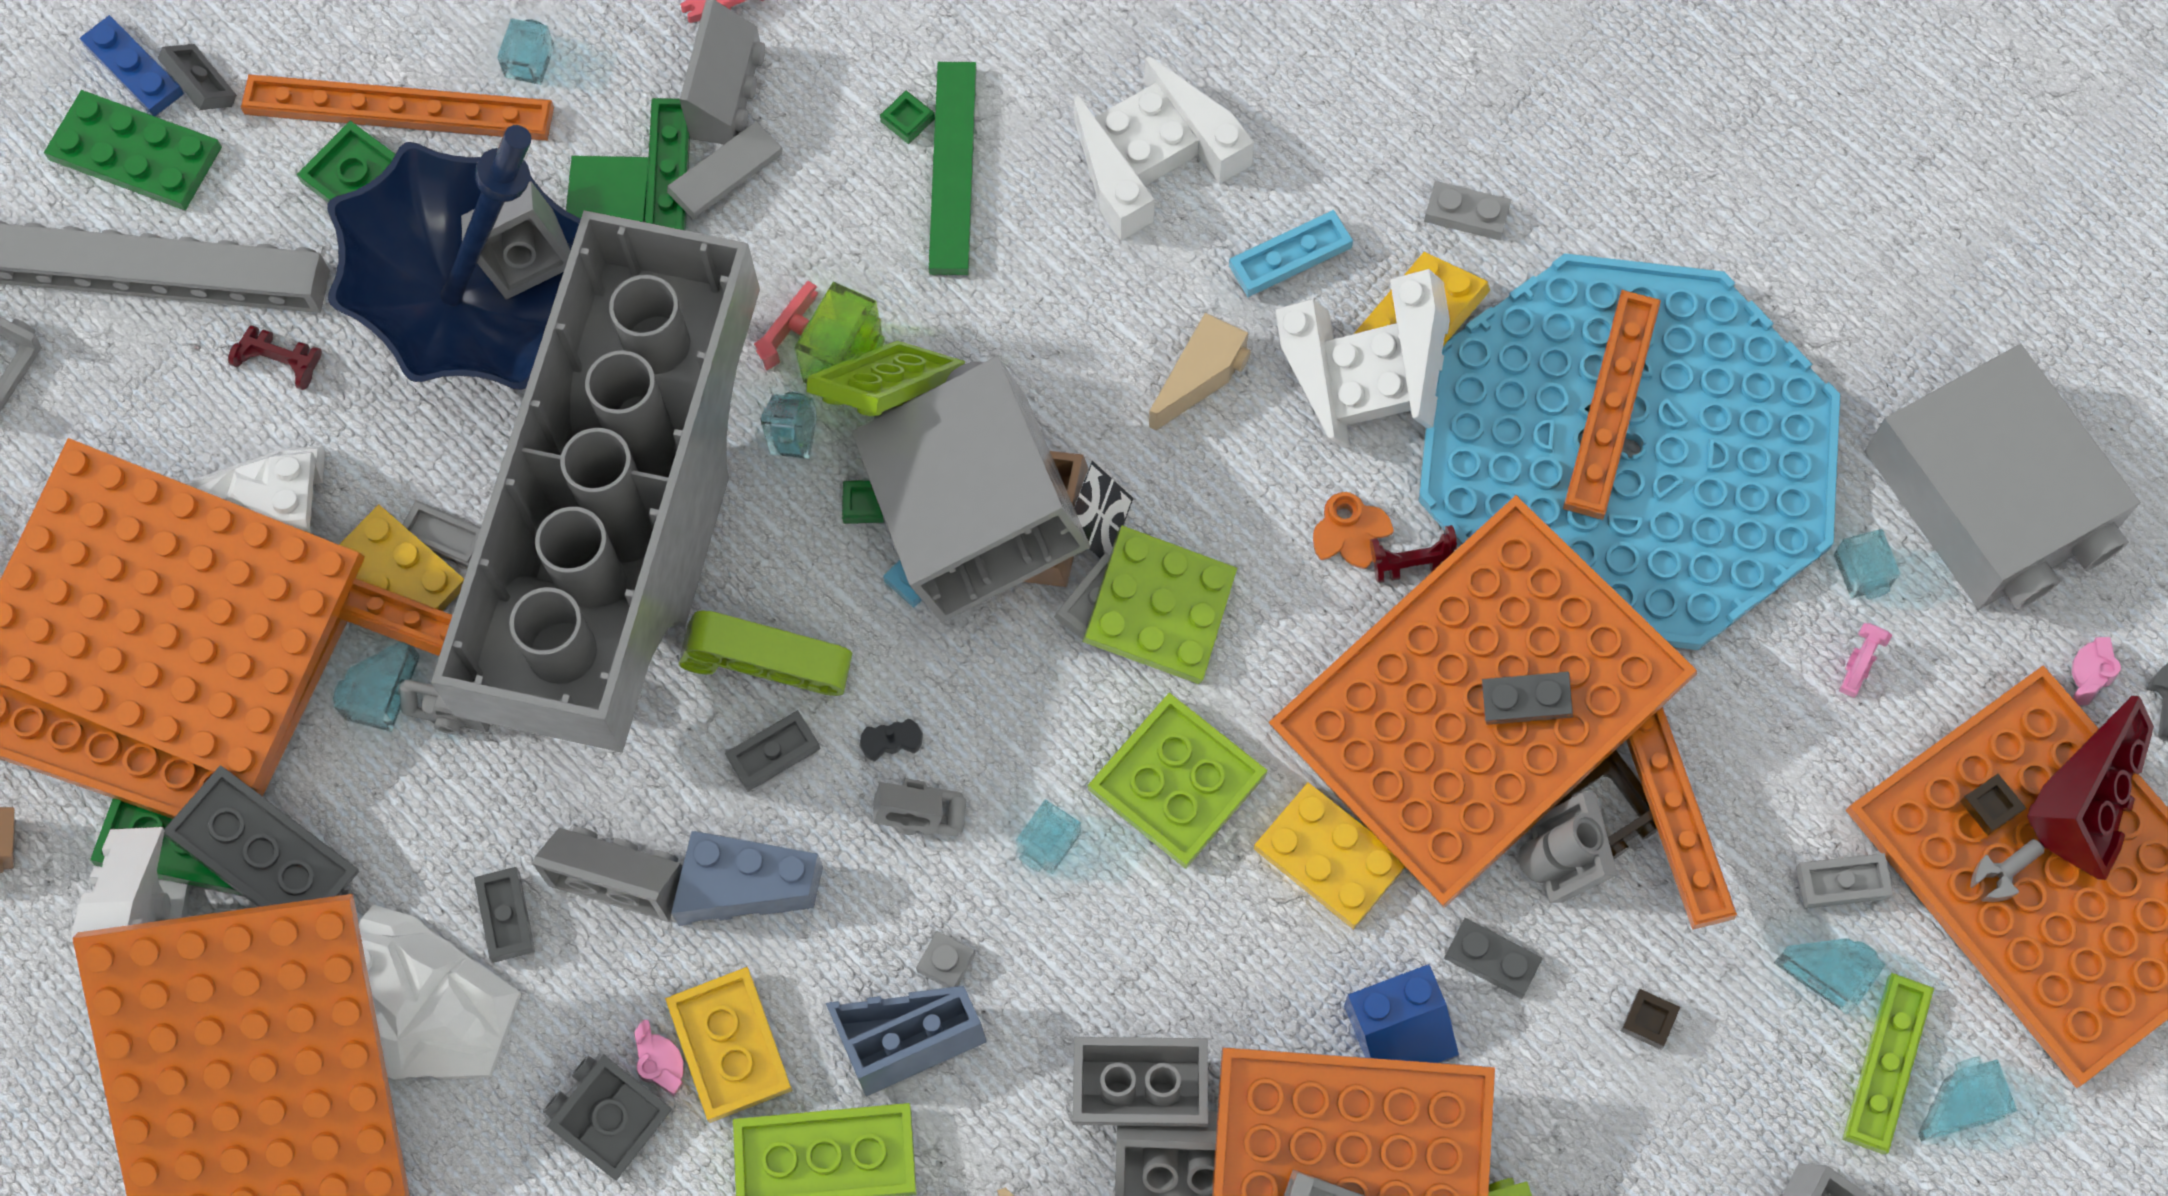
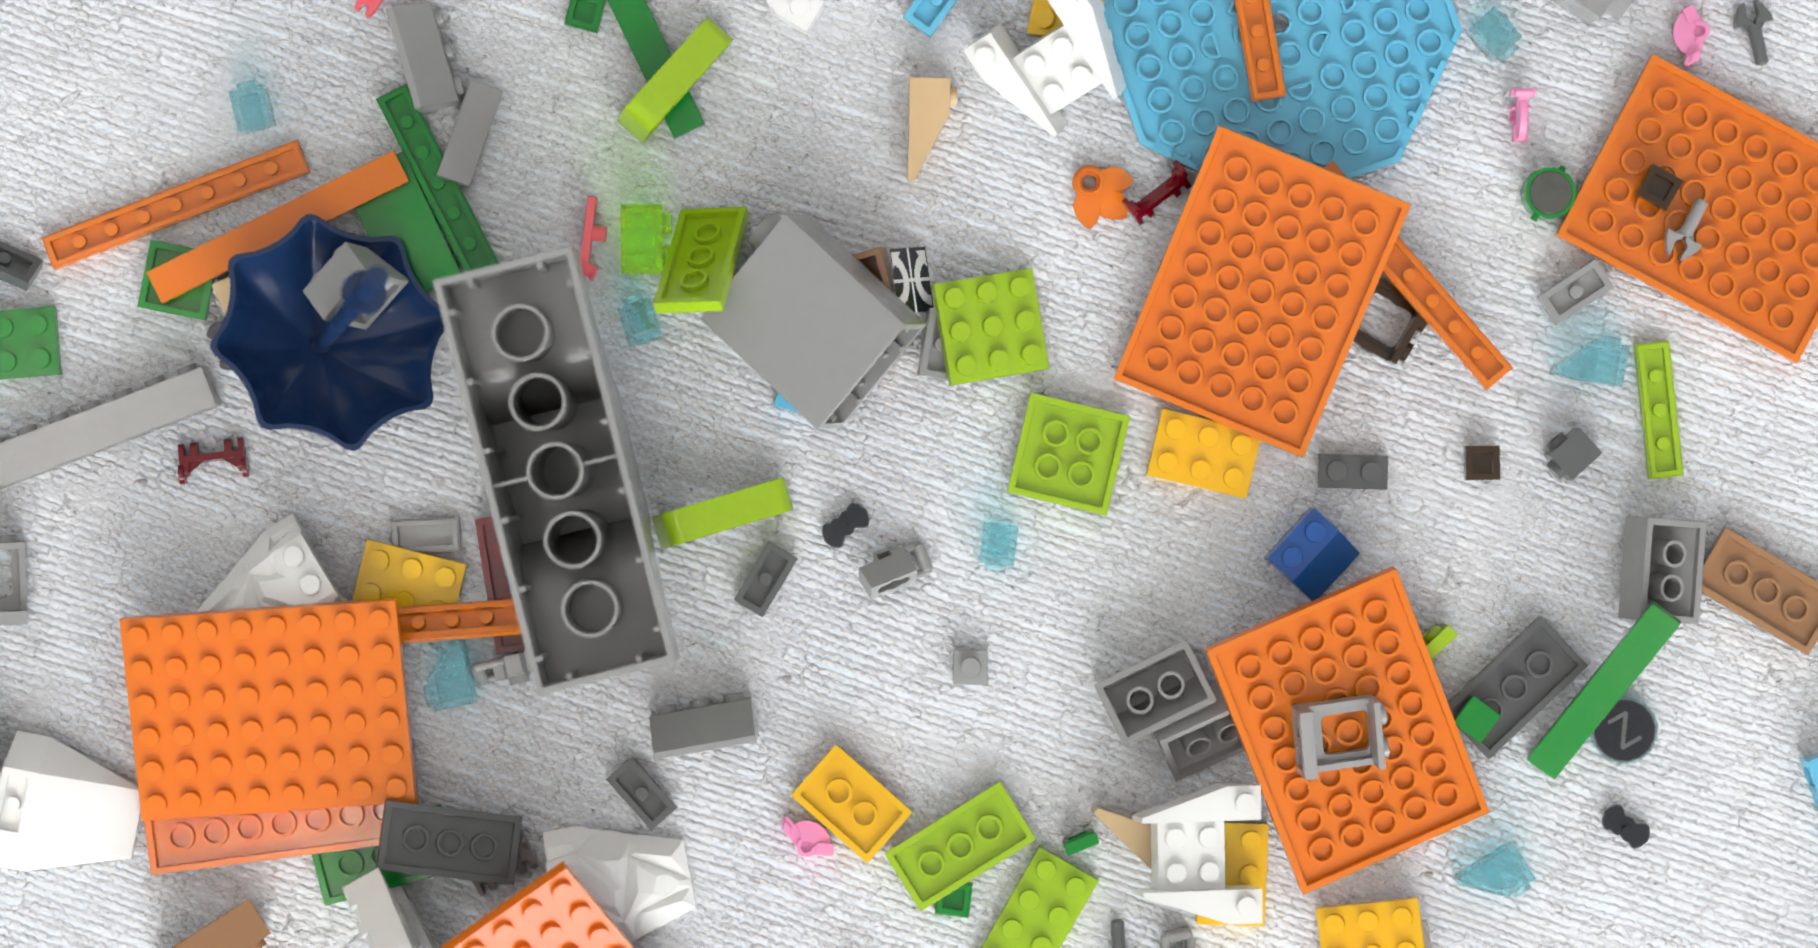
camera: 30 degrees left, 20 degrees up
(547, 162) = (326, 202): none -> orange tile
(605, 1114) = (794, 894): dark grey plate -> none
(743, 877) = (797, 684): sand blue wedge -> none
(860, 503) = (722, 355): green tile -> none
(906, 1033) = (971, 738): sand blue wedge -> none
(956, 207) = (674, 79): none -> lime beam
(1527, 698) = (1297, 281): dark grey plate -> none
(1569, 849) = (1374, 372): light grey plate -> none
(1762, 1059) = (1570, 454): none -> dark grey brick
(1858, 758) = (1548, 193): none -> pearl dark grey piece
(1968, 1099) = (1723, 412): clear light blue slope -> none
(2085, 799) = (1722, 154): dark red wedge -> none

